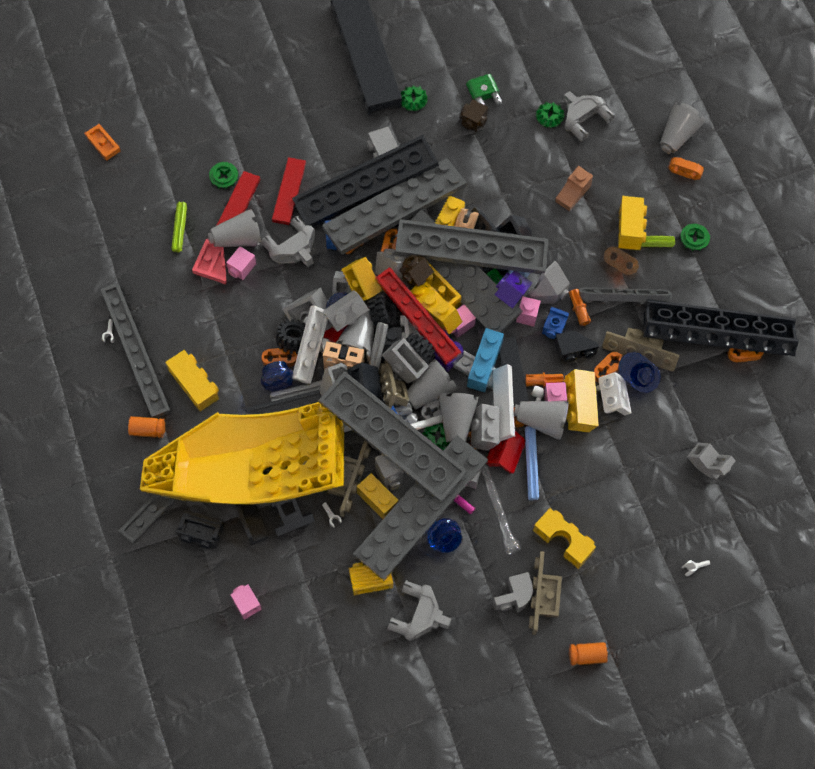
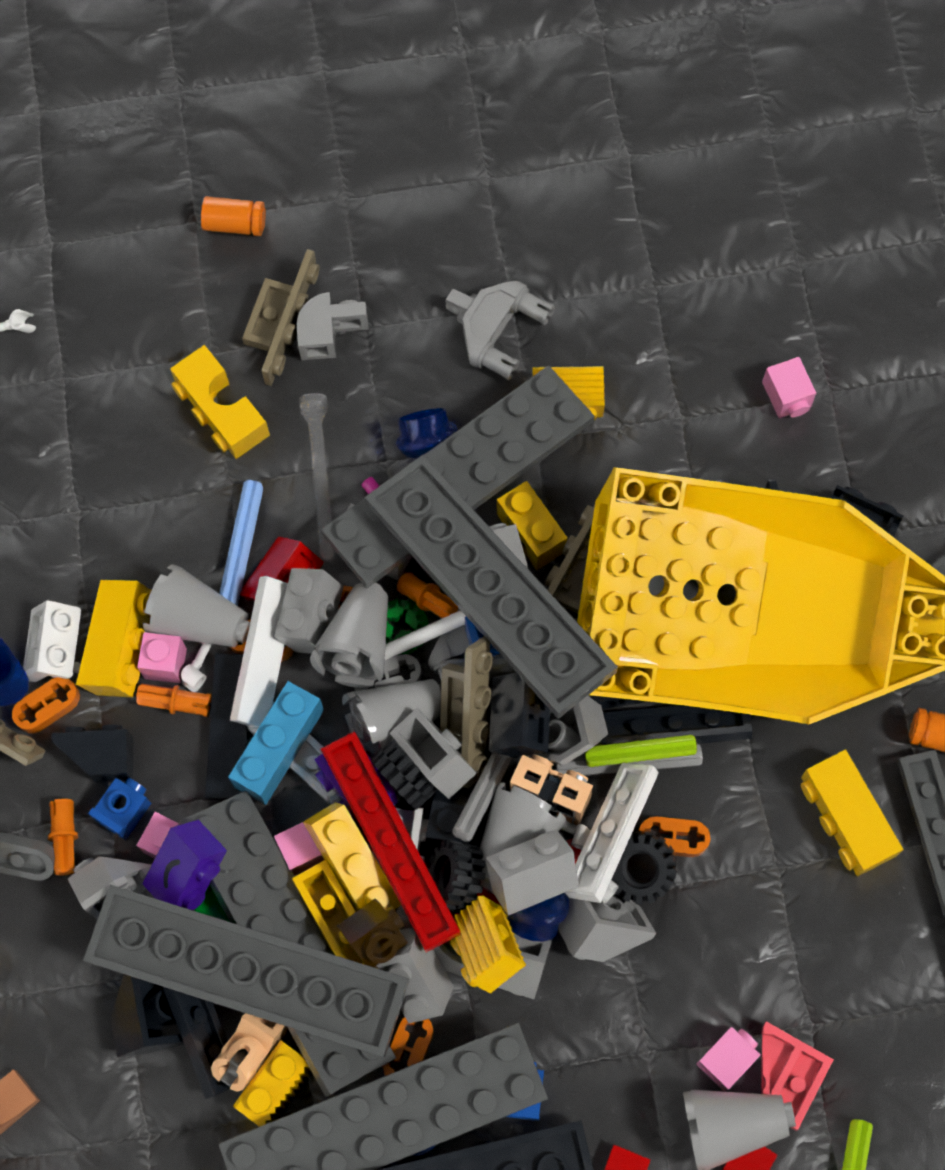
camera: 165 degrees left, 5 degrees up
(276, 376) = (685, 786): clear blue piece -> none
(295, 248) = (608, 1073): light grey connector -> none
(298, 388) = (641, 750): none -> lime axle

